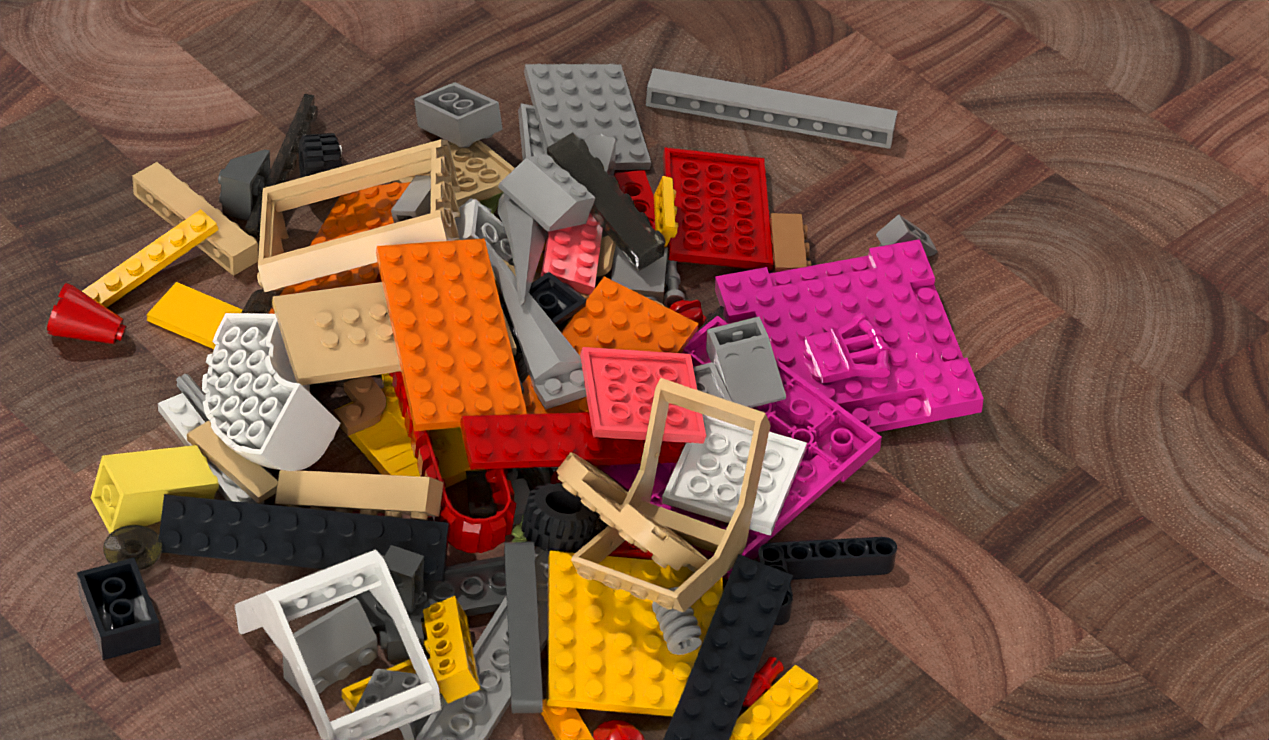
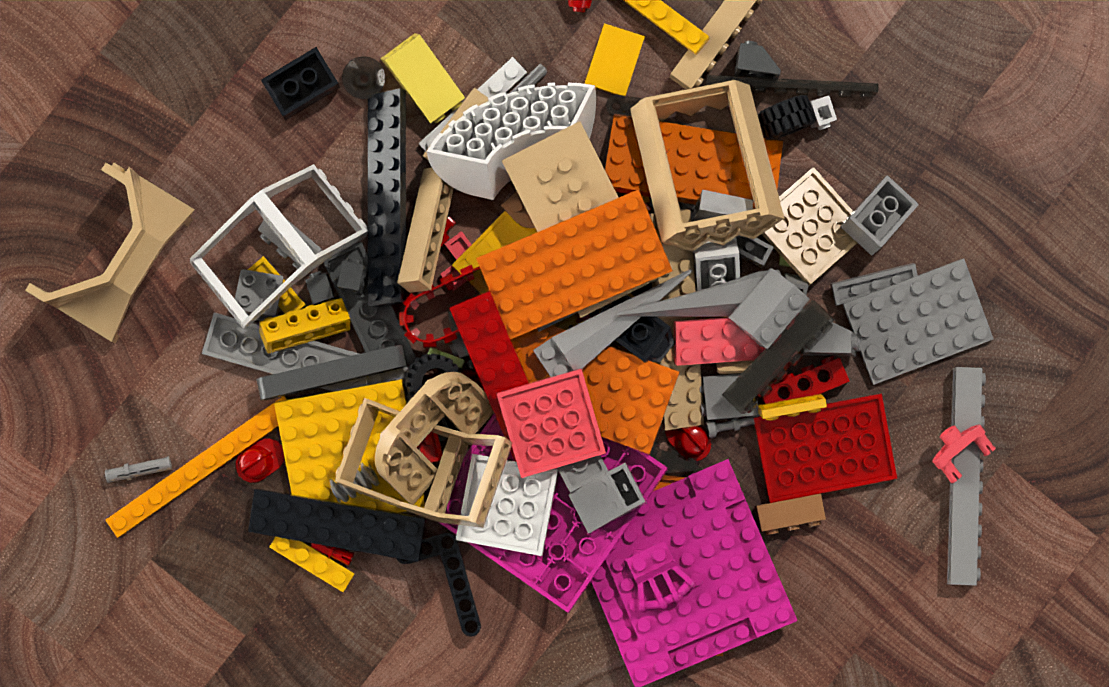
camera: 80 degrees right, 40 degrees up
(734, 92) = (954, 443): none -> coral connector
(902, 230) = (823, 609): light grey slope -> none

